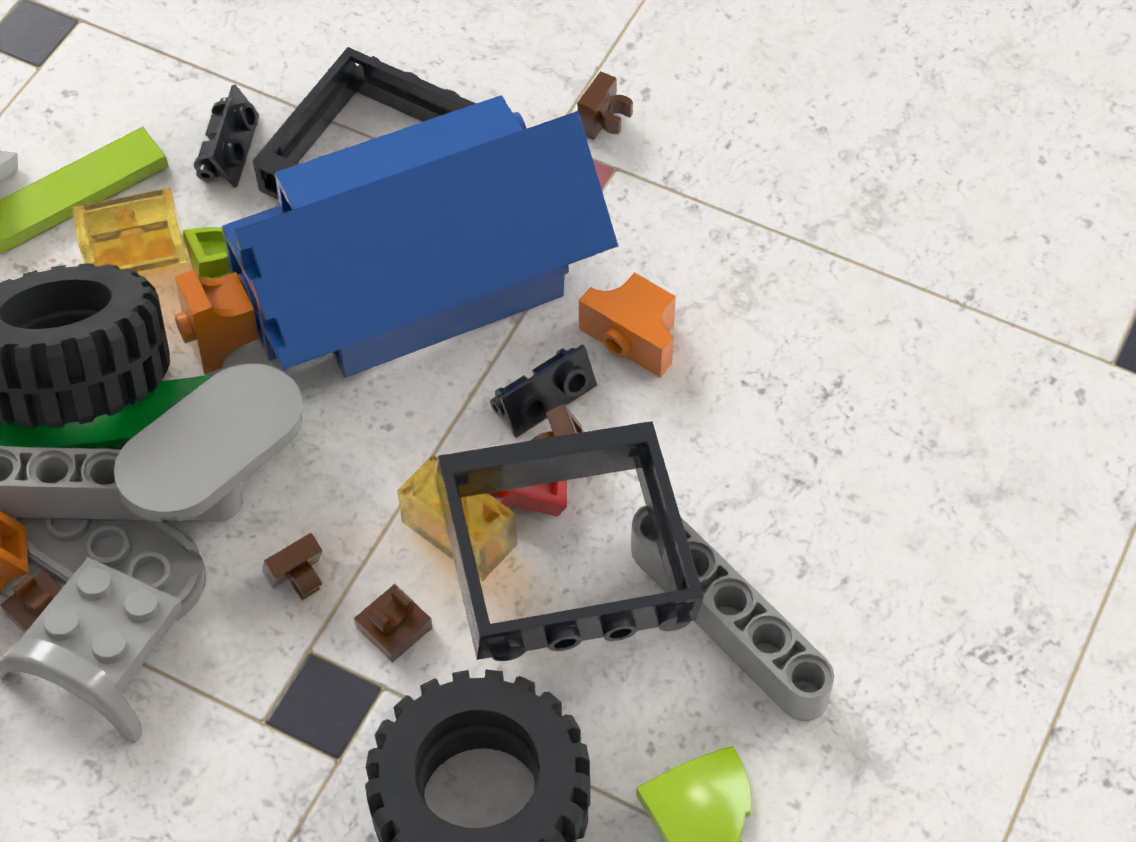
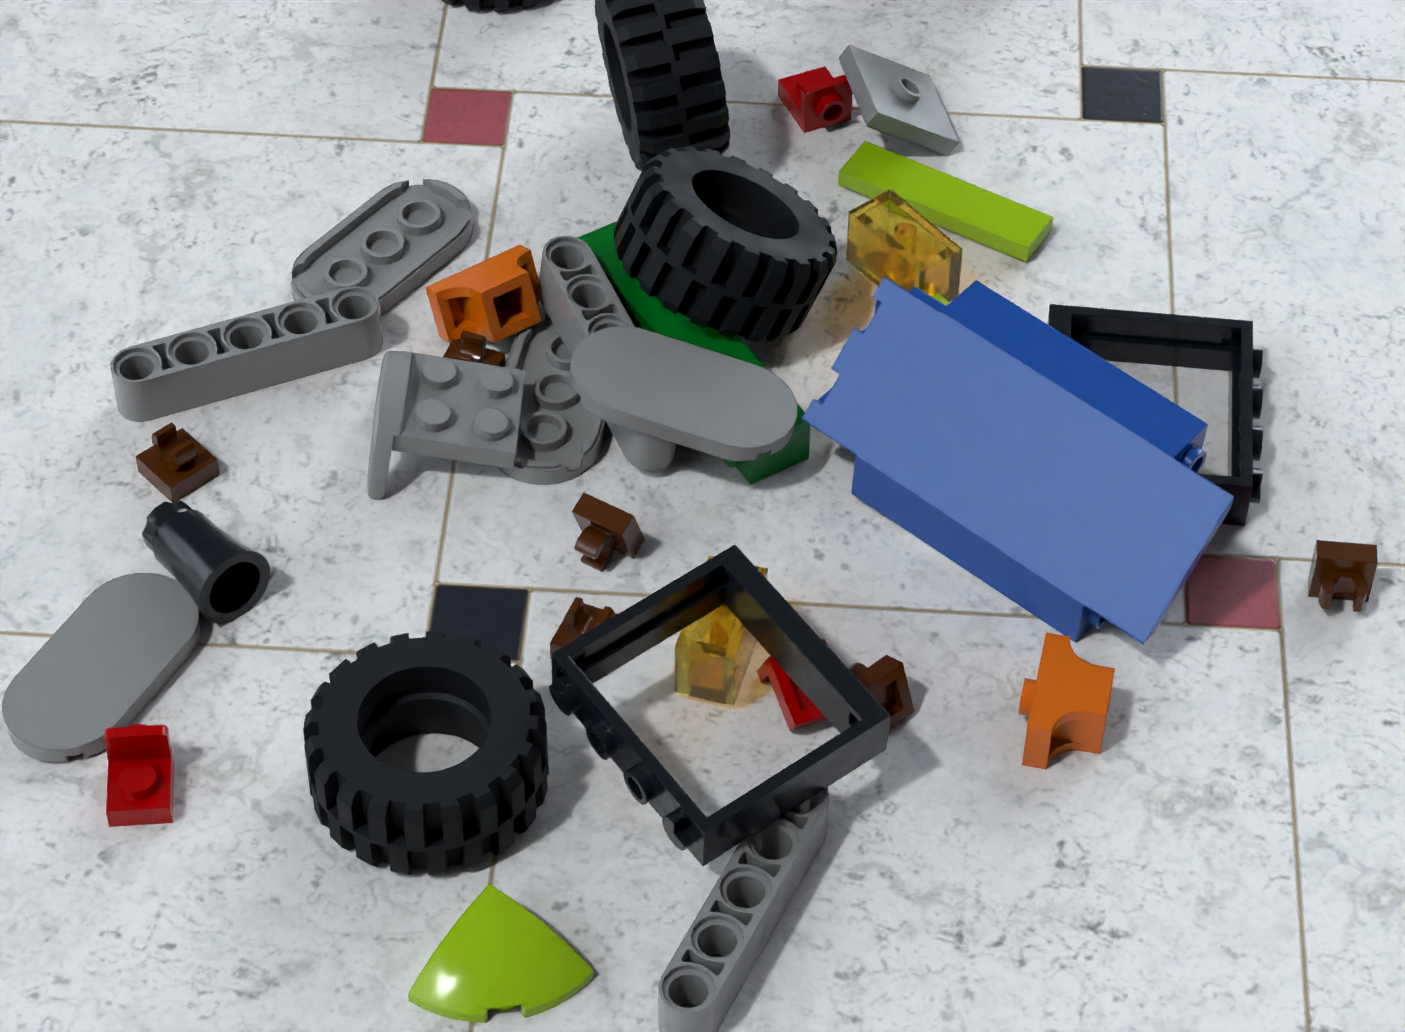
camera: 65 degrees right, 10 degrees down
(214, 317) = (823, 335): orange brick -> none
(229, 138) = (1094, 284): black hinge -> none
(552, 384) = (935, 660): black hinge -> none

